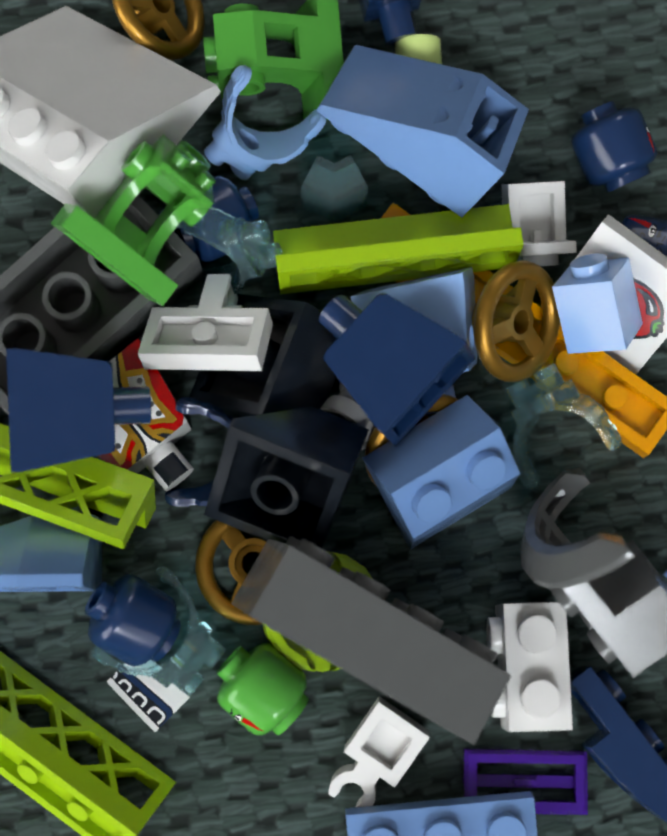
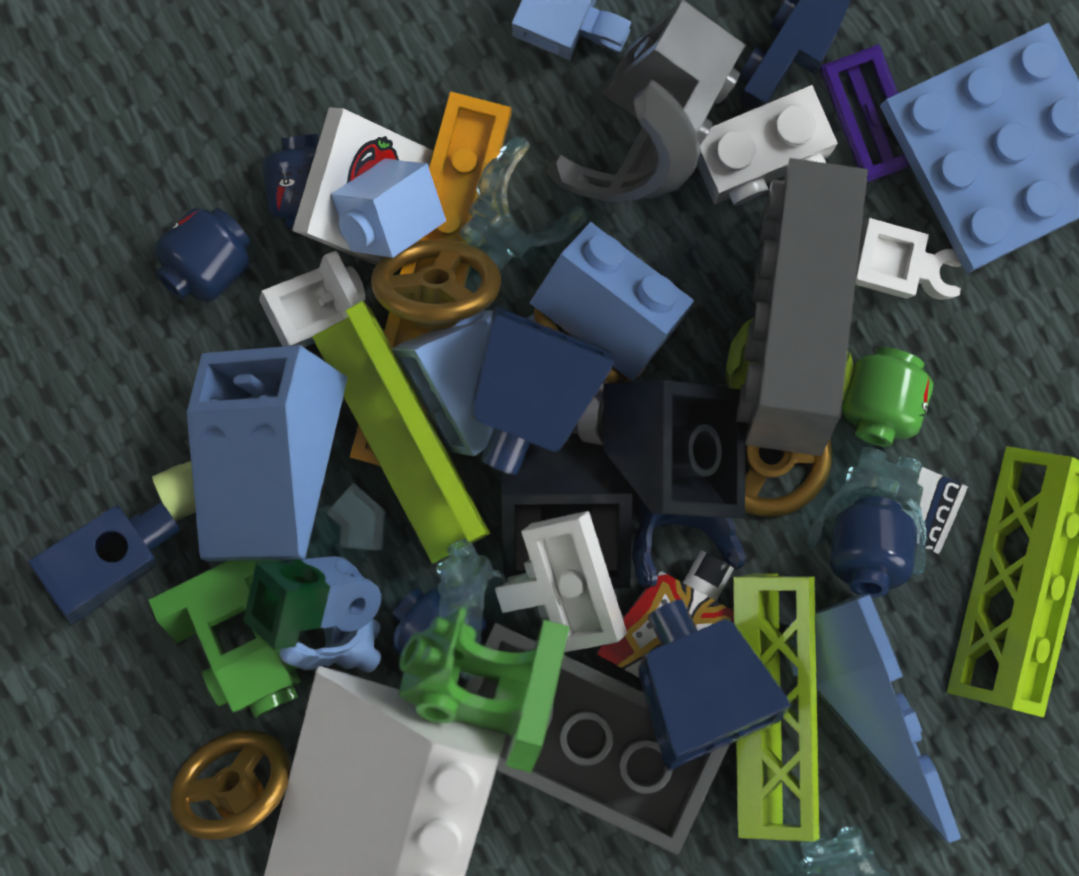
camera: 105 degrees left, 5 degrees up
(282, 109) = (308, 596): none -> dark green leg

